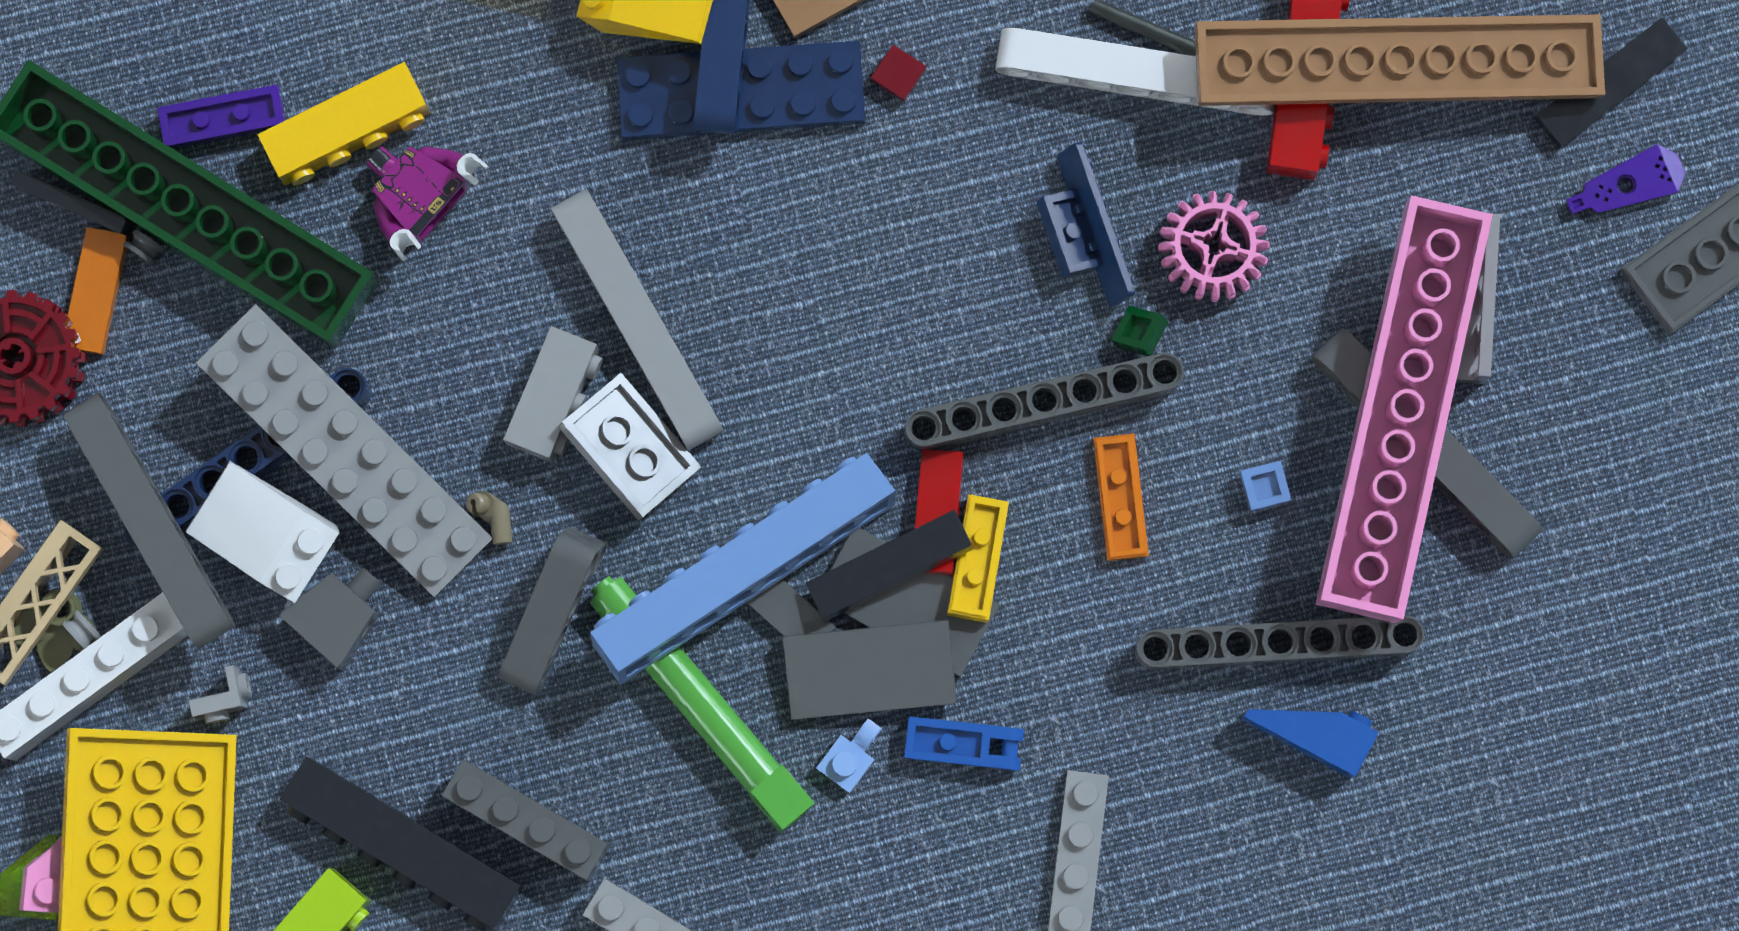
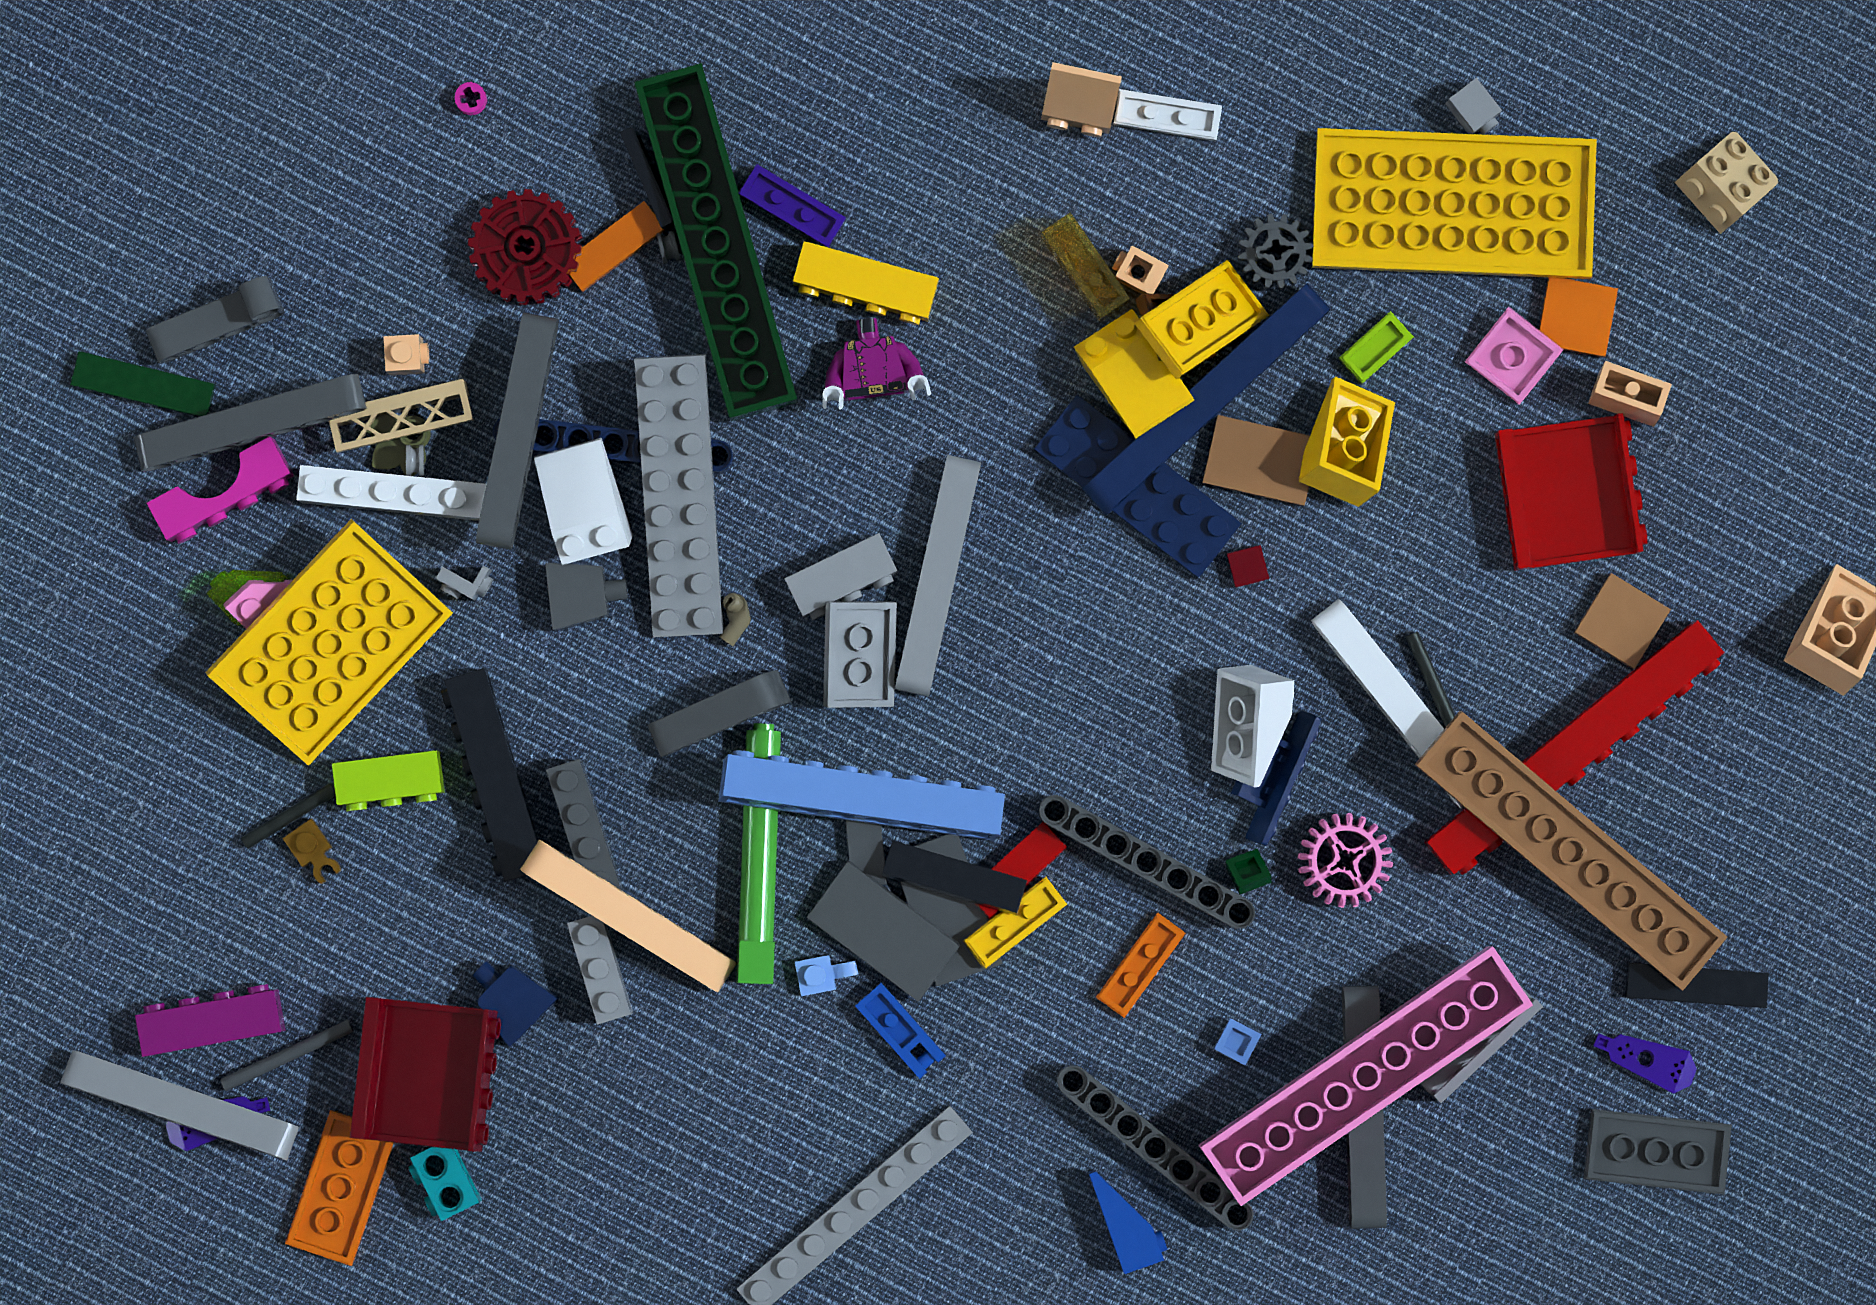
camera: 35 degrees right, 5 degrees up
(630, 857) = (628, 916): none -> light nougat beam
(1022, 199) = (1249, 721): none -> white slope

